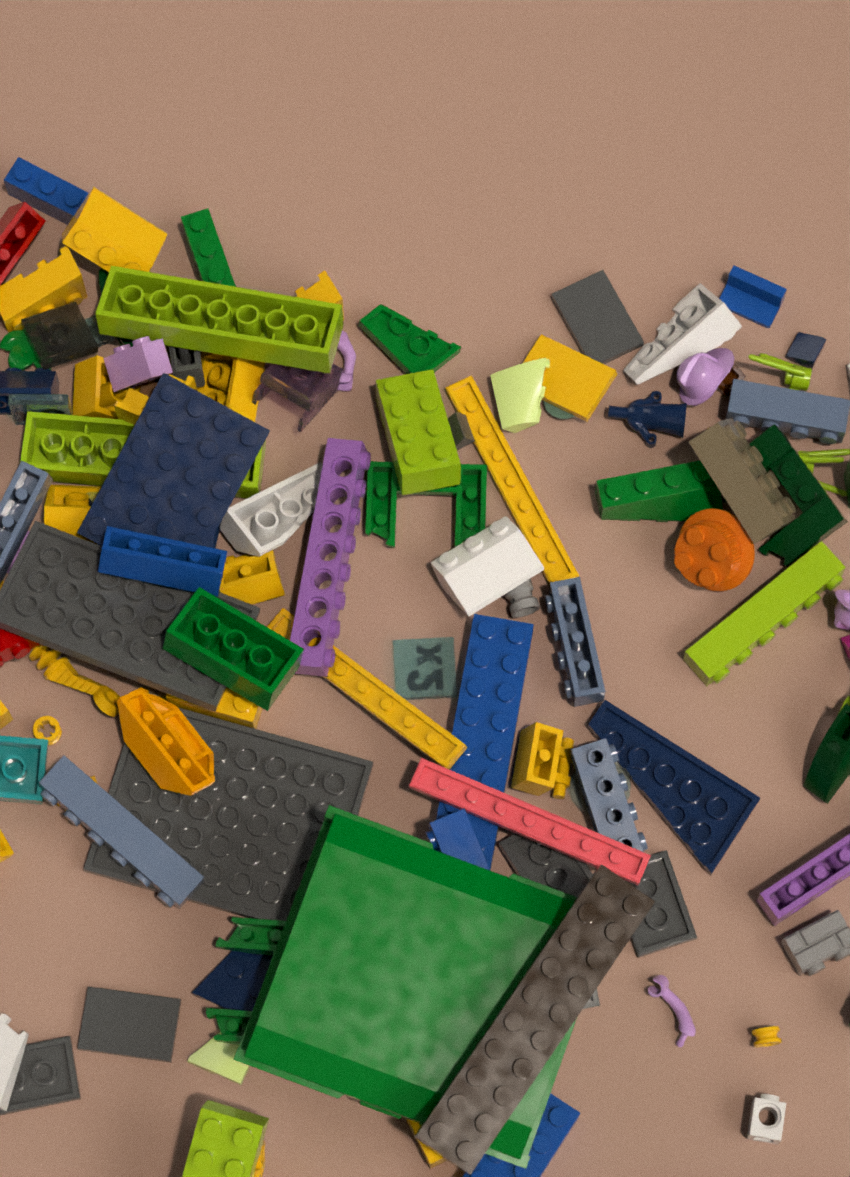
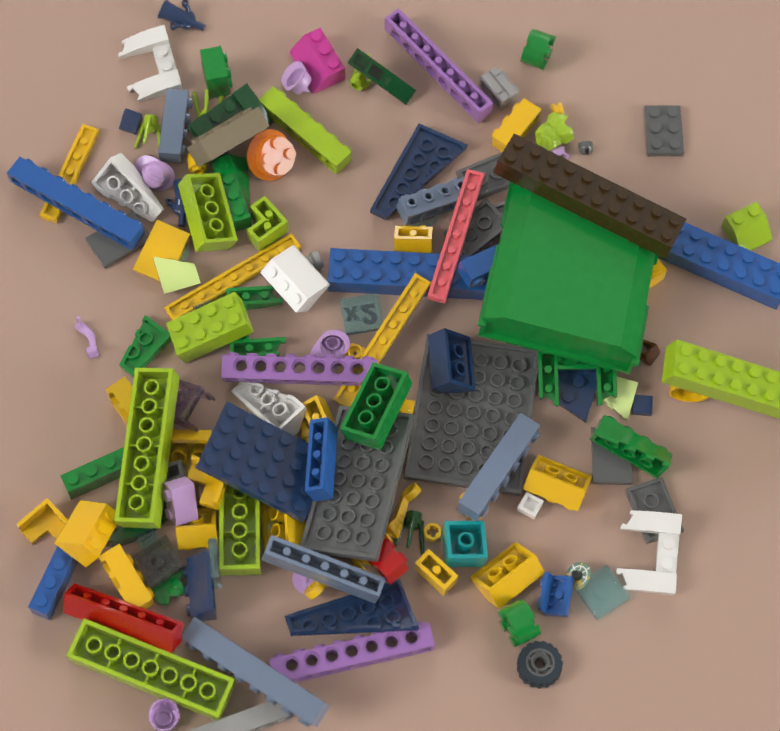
camera: 100 degrees left, 5 degrees down
(64, 882) = (530, 505): none -> white plate
(67, 699) = (413, 522): none -> dark green plant
(95, 929) = (557, 483): none -> yellow slope
(131, 1053) = (631, 446): none -> green wedge
(152, 188) = (42, 520): none -> yellow panel
(165, 743) = (439, 447): light orange wedge -> none
(207, 1087) = (642, 405): none -> dark blue tile
(300, 1113) = (649, 352): none -> reddish brown slope
(306, 783) = (451, 362): none -> dark blue slope
(356, 641) = (355, 348): none -> yellow plate
(367, 610) = (331, 343): none -> lavender piece
(453, 258) = (85, 330): none -> lavender piece
(576, 642) = (336, 226): sand blue brick -> none
(590, 540) = (269, 225): none -> lime brick
(617, 444) = (207, 212): none -> lime brick
(658, 255) = (76, 203): none -> blue brick
(692, 1075) = (585, 146): none -> dark grey hinge
(718, 252) = (73, 166): none -> yellow tile
(719, 1020) = (554, 132): none -> lime hair
(740, 960) = (520, 122): none -> yellow brick
(752, 297) = (97, 152): blue panel -> none
(761, 1132) = (609, 102): white brick -> none

